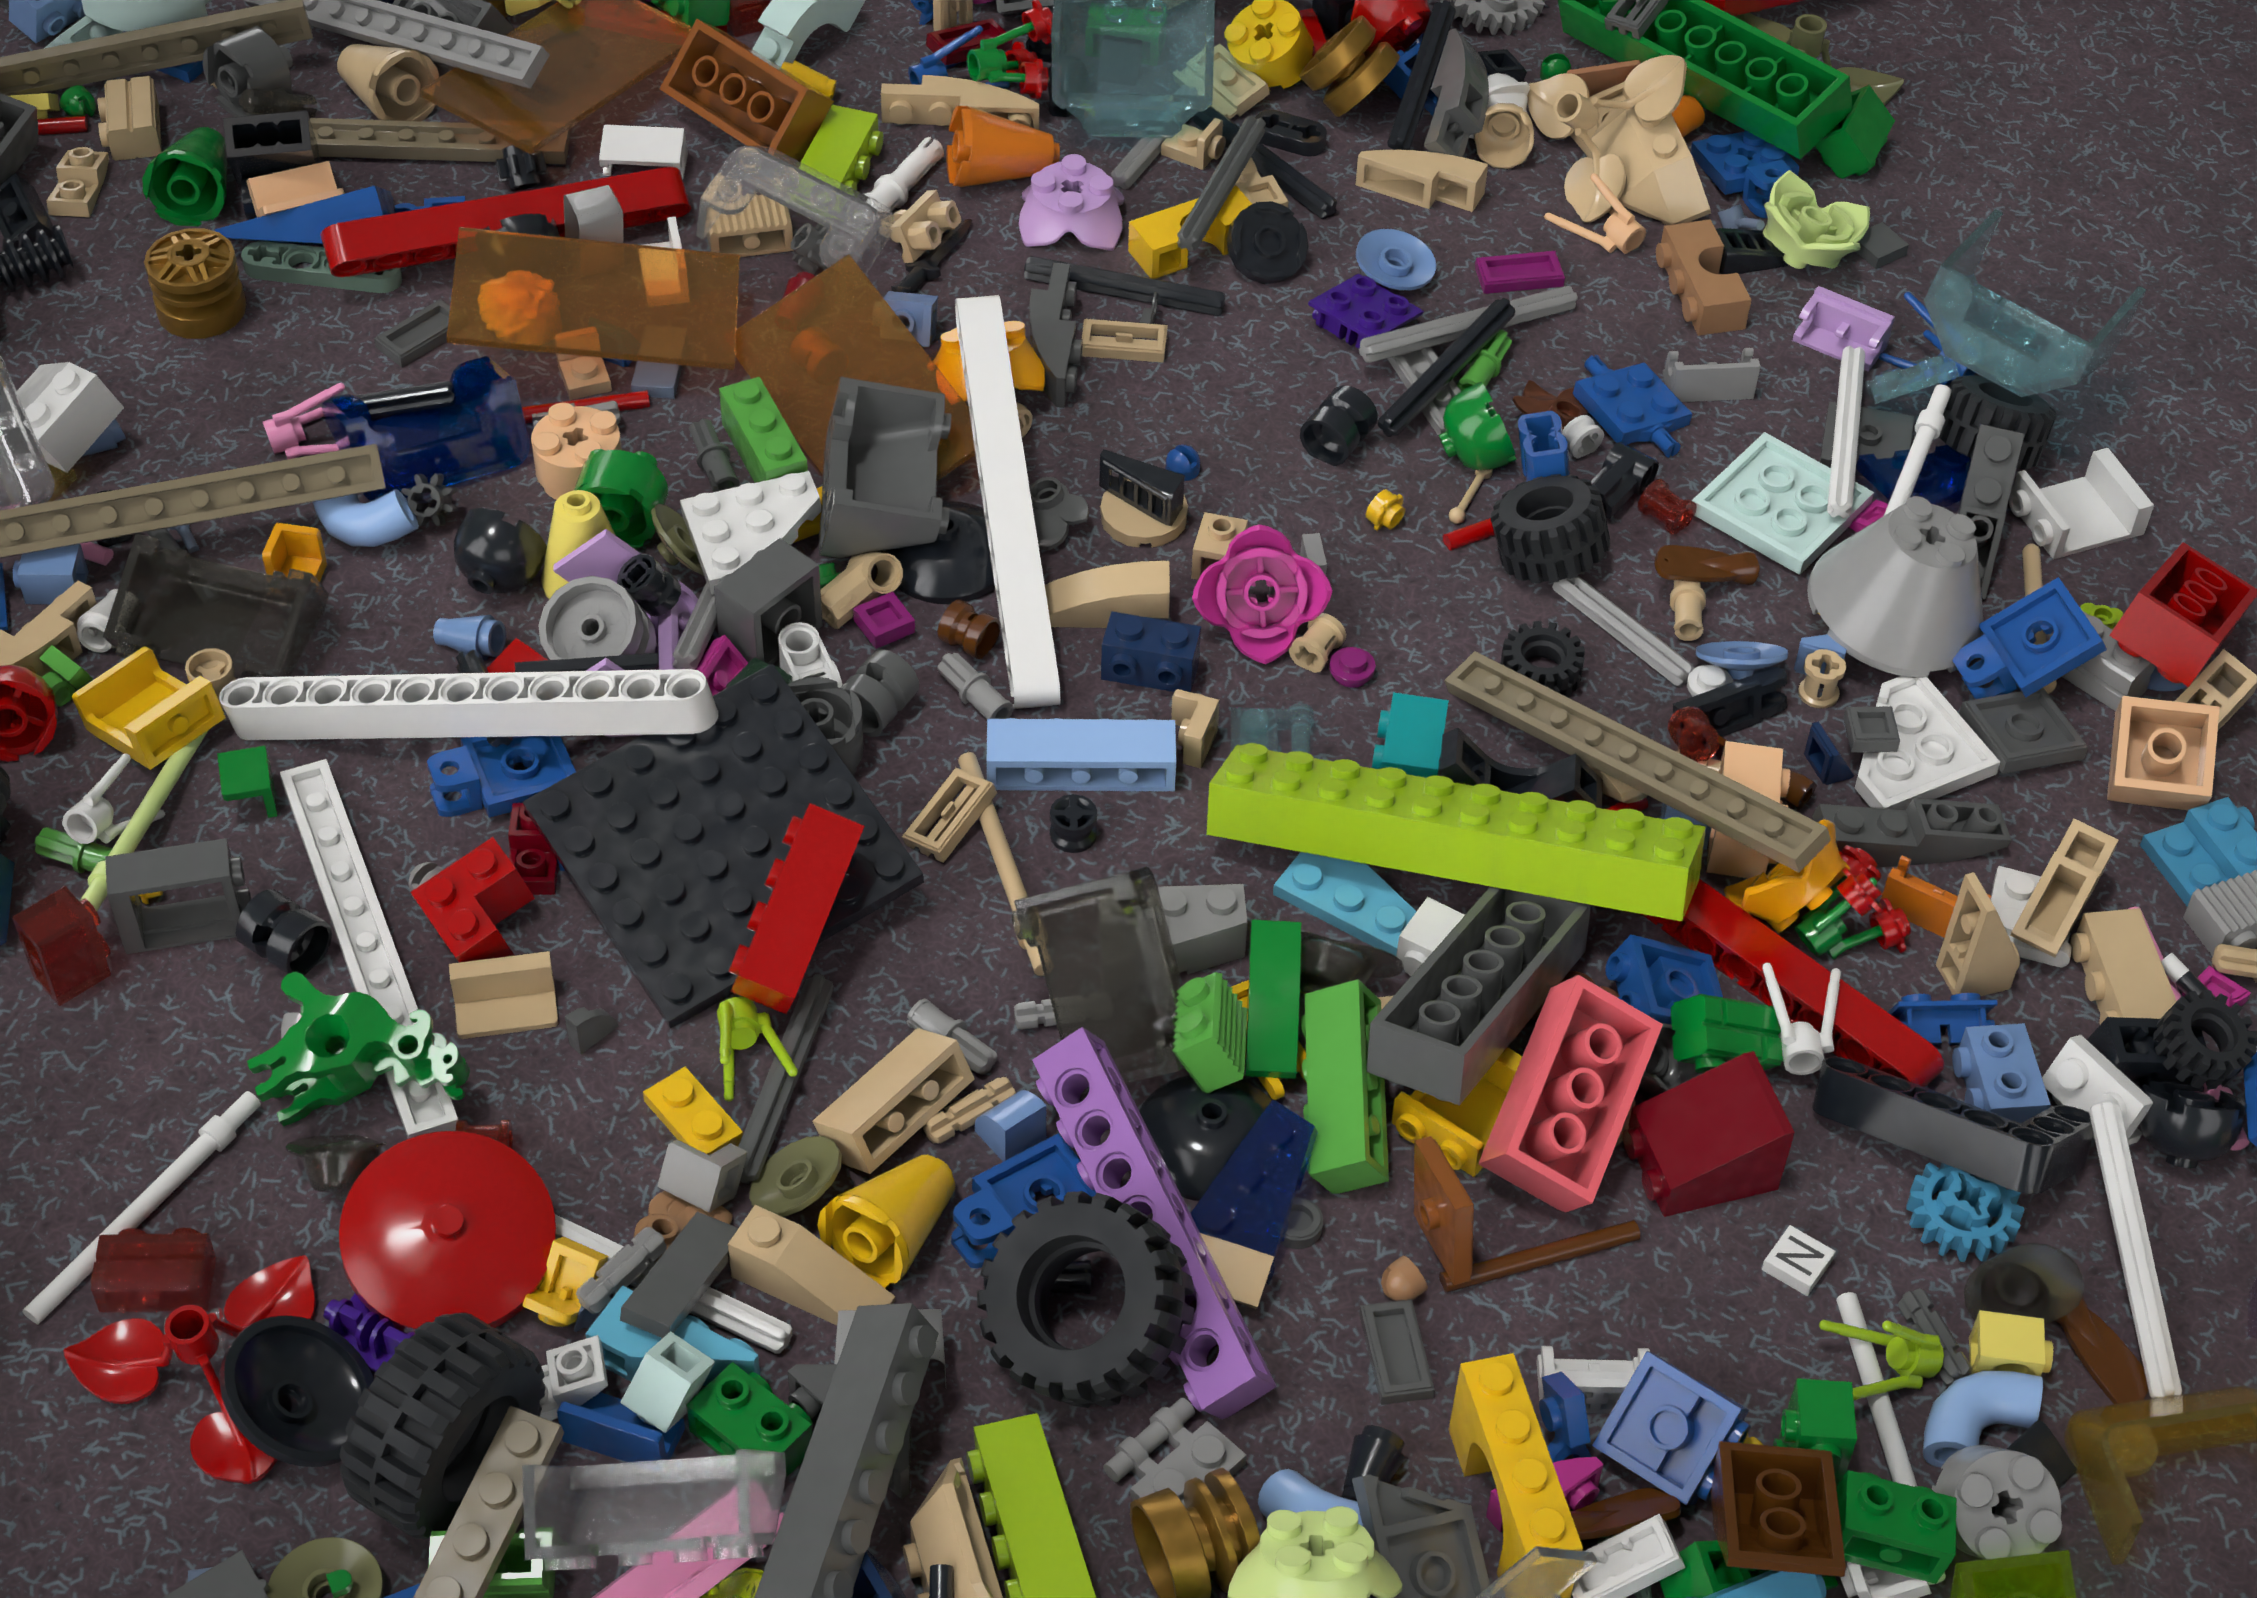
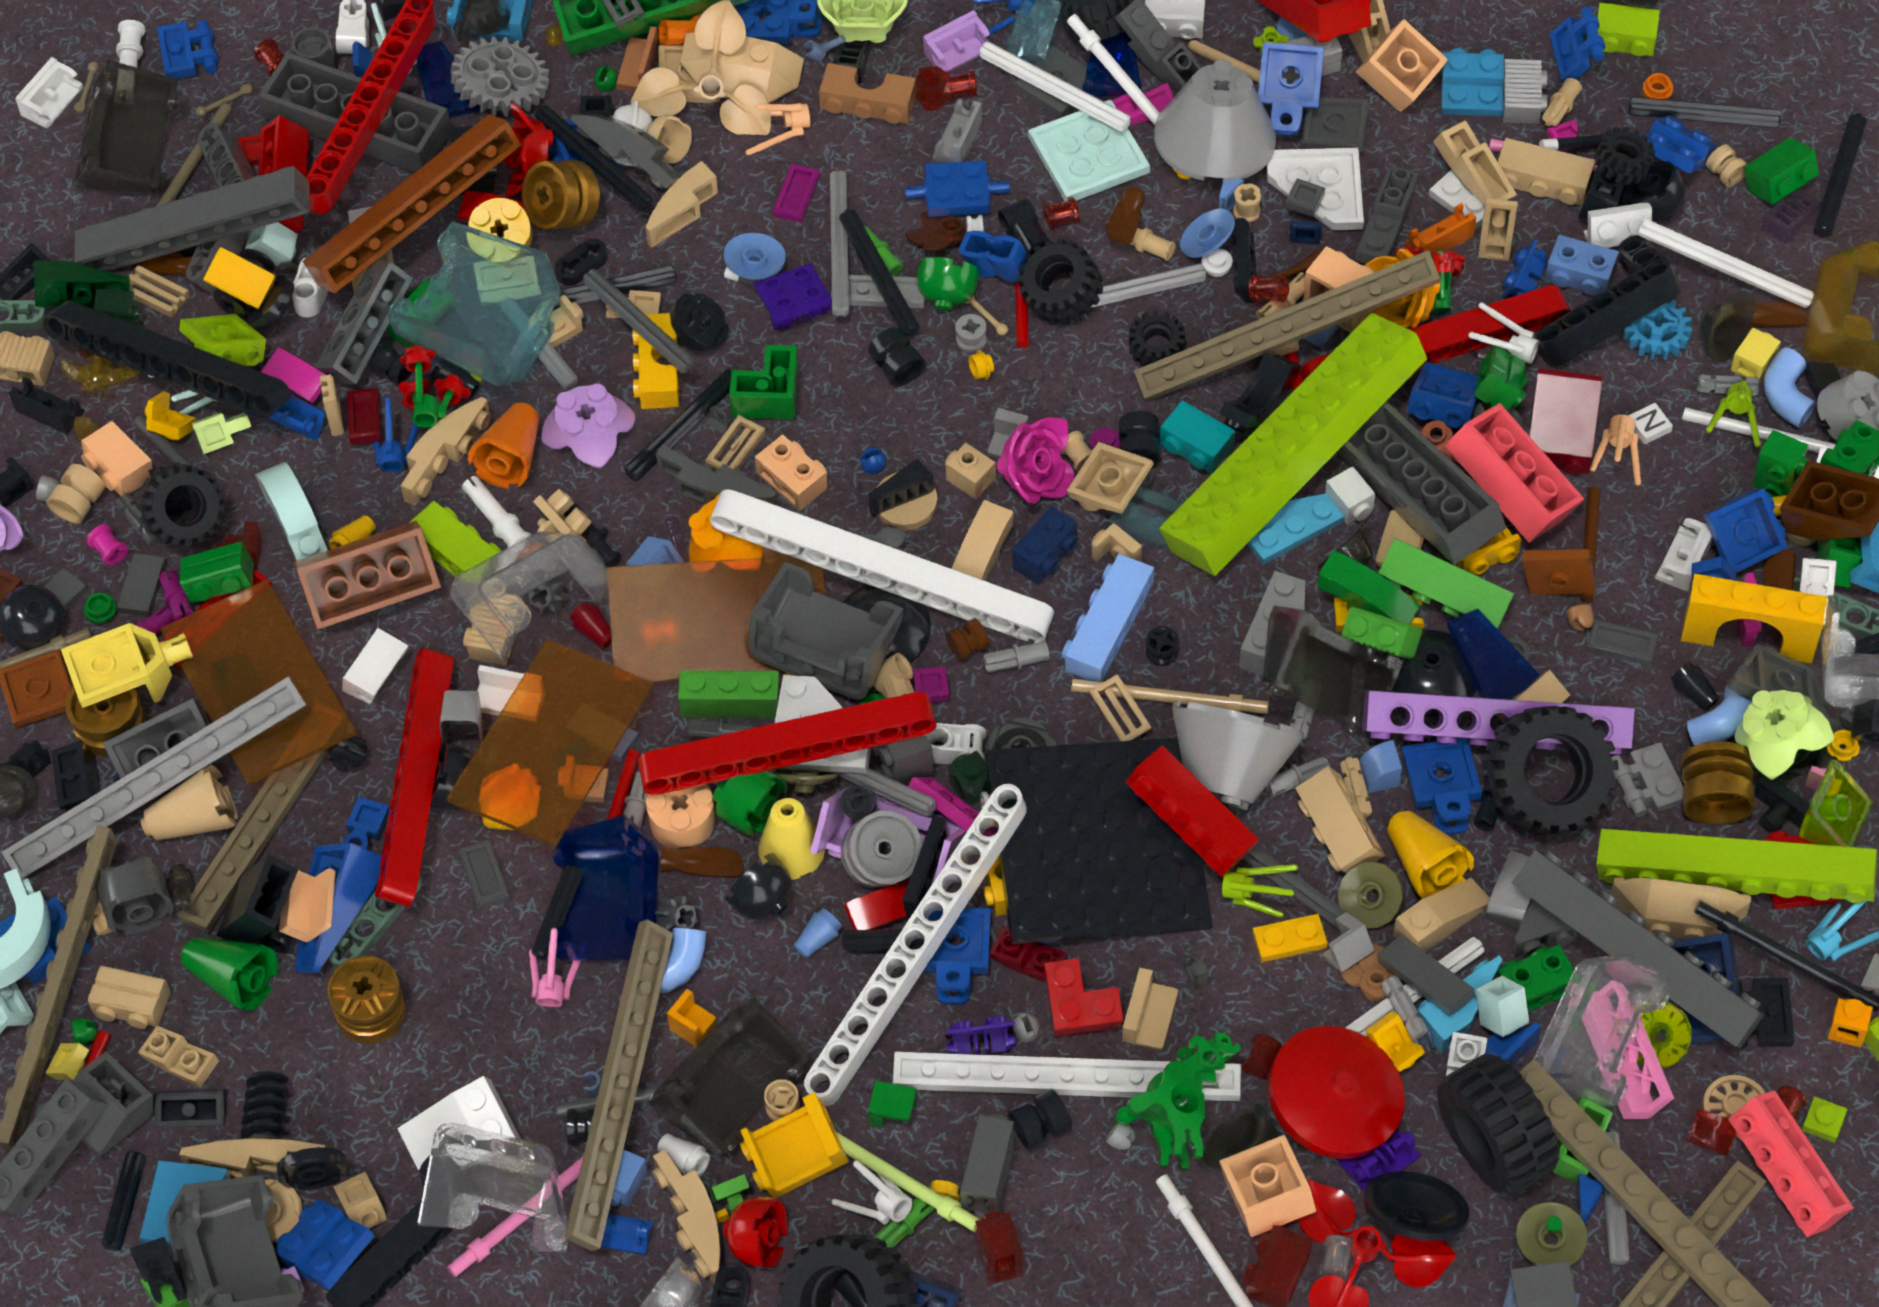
camera: 60 degrees left, 10 degrees up
(264, 1203) = (1267, 1185): none -> light nougat brick
(381, 833) = (995, 1026): none -> dark purple hinge
(524, 496) = (702, 861): none -> reddish brown piece
(680, 477) = (786, 743): none -> red beam
(884, 687) = (997, 705): dark grey wheel -> none
(922, 925) = (1232, 750): none -> light grey cone
(1113, 392) = (791, 472): none -> light nougat brick
(1218, 333) = (770, 391): none -> green brick
(1283, 674) = (1108, 479): none -> tan slope
(1362, 694) = (1140, 435): none -> black wheel
(1426, 484) = (965, 338): none -> light grey wheel
(1748, 1224) = (1620, 435): none -> light nougat plant
(1765, 329) = (937, 86): none -> clear red connector

